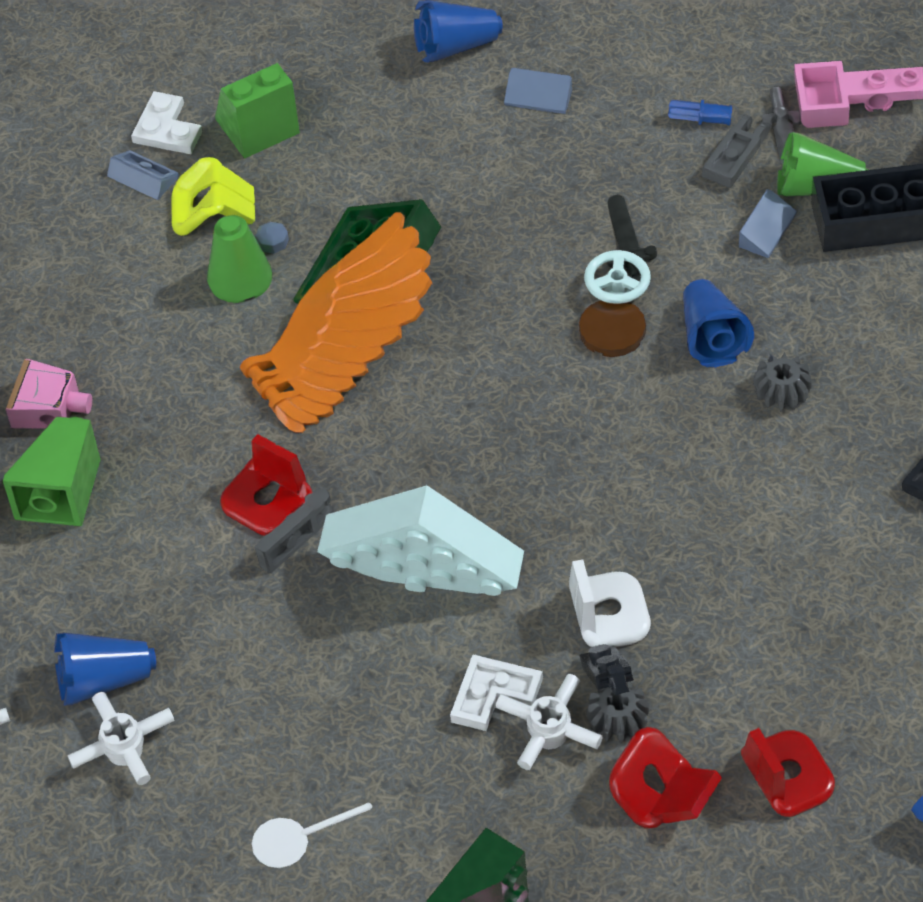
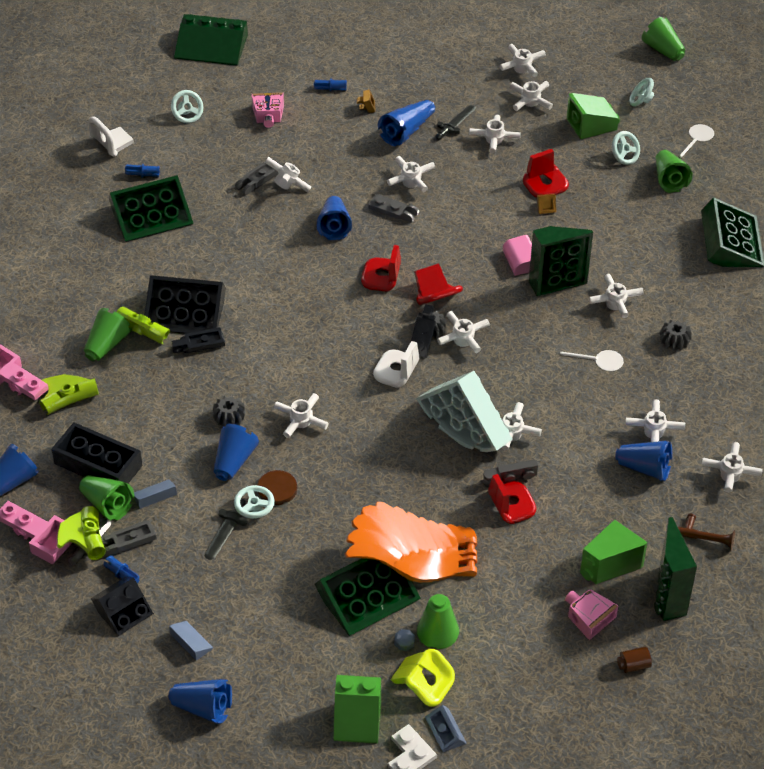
camera: 150 degrees left, 5 degrees down
(344, 601) = (516, 426): none -> white bar
(485, 683) = (481, 363): white plate -> none
(657, 72) = (122, 605): none -> black slope
(674, 436) = (301, 414): none -> white bar
(794, 92) = (84, 531): none -> lime pin

